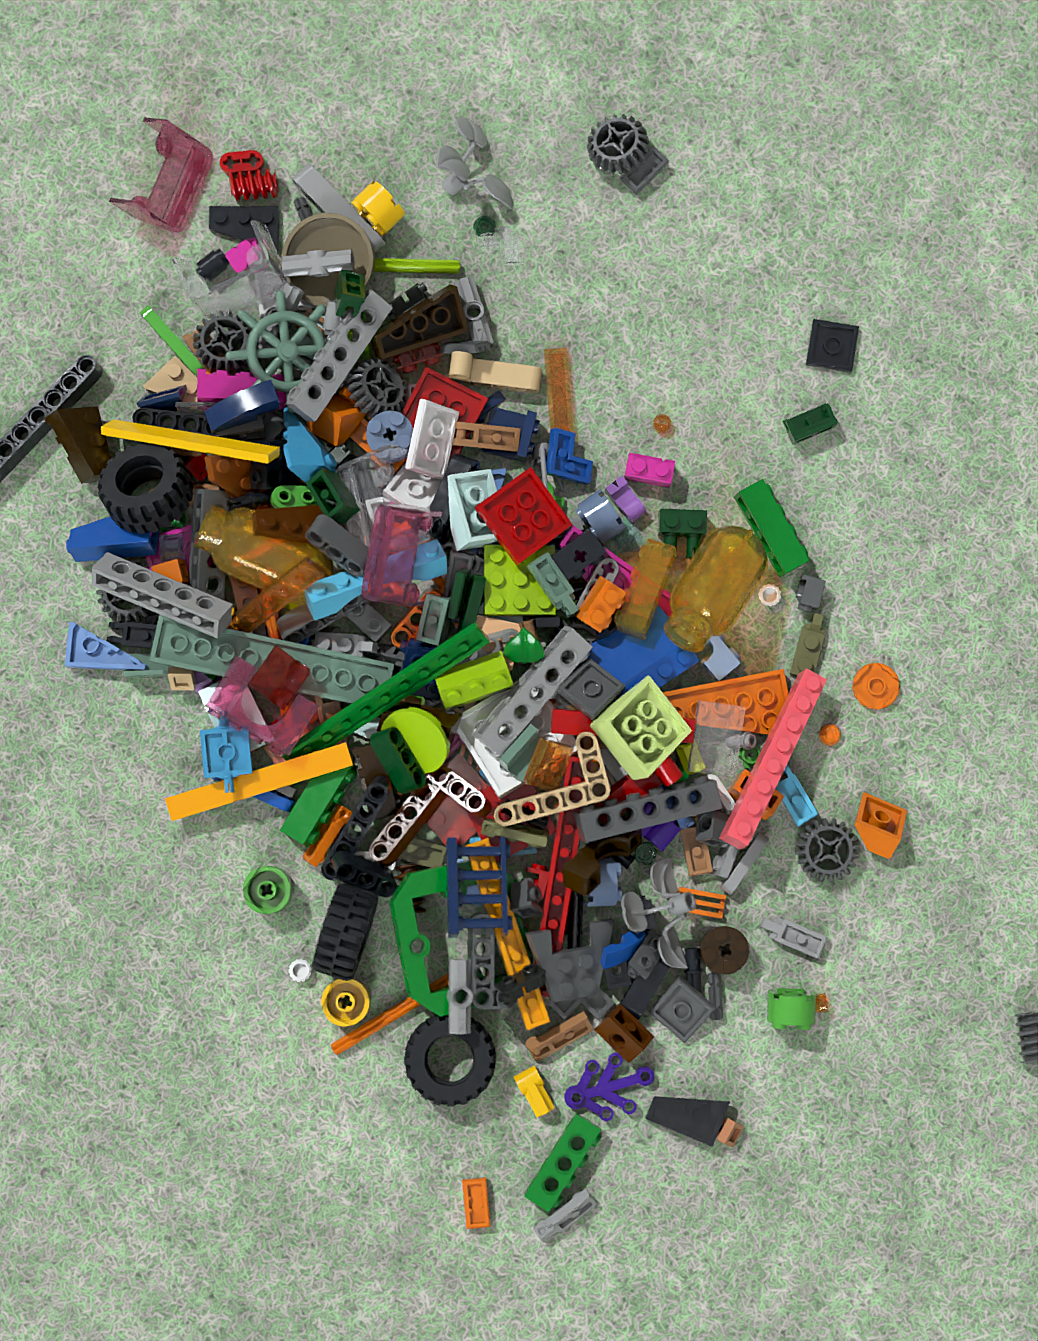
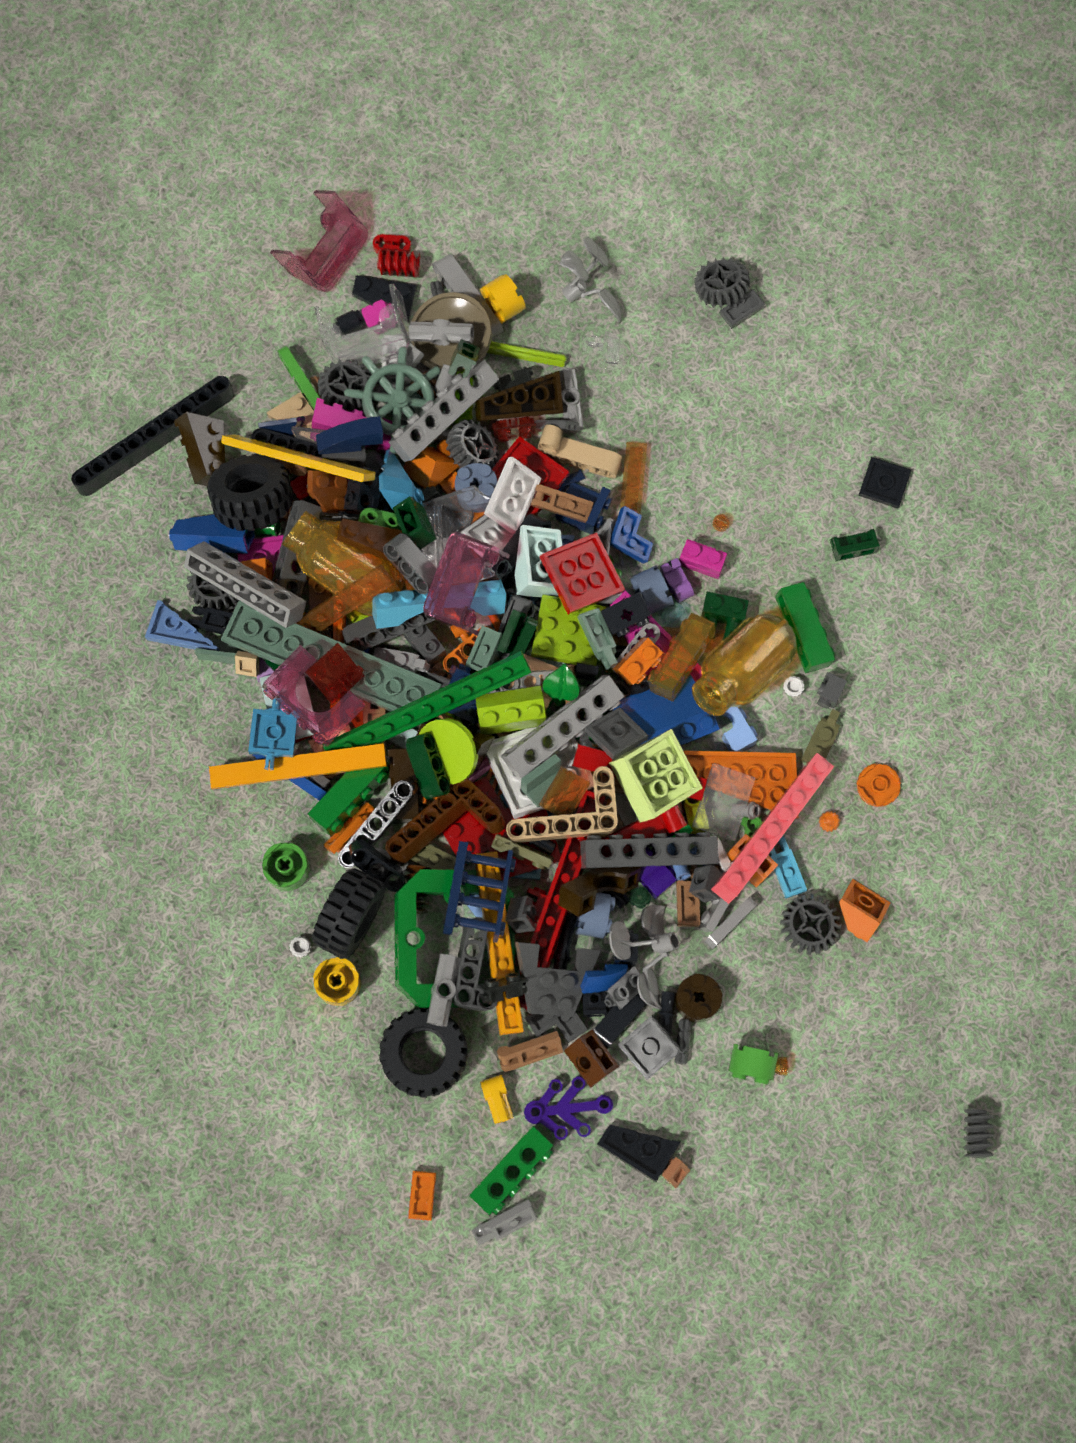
camera: 10 degrees right, 10 degrees down
(171, 547) = (262, 549): clear light blue slope -> none
(383, 1019) = (365, 1007): orange axle -> none
(480, 222) = (593, 326): clear green plate -> none
(704, 903) = (699, 967): orange tile -> none
(795, 936) = (767, 998): light grey hinge -> none

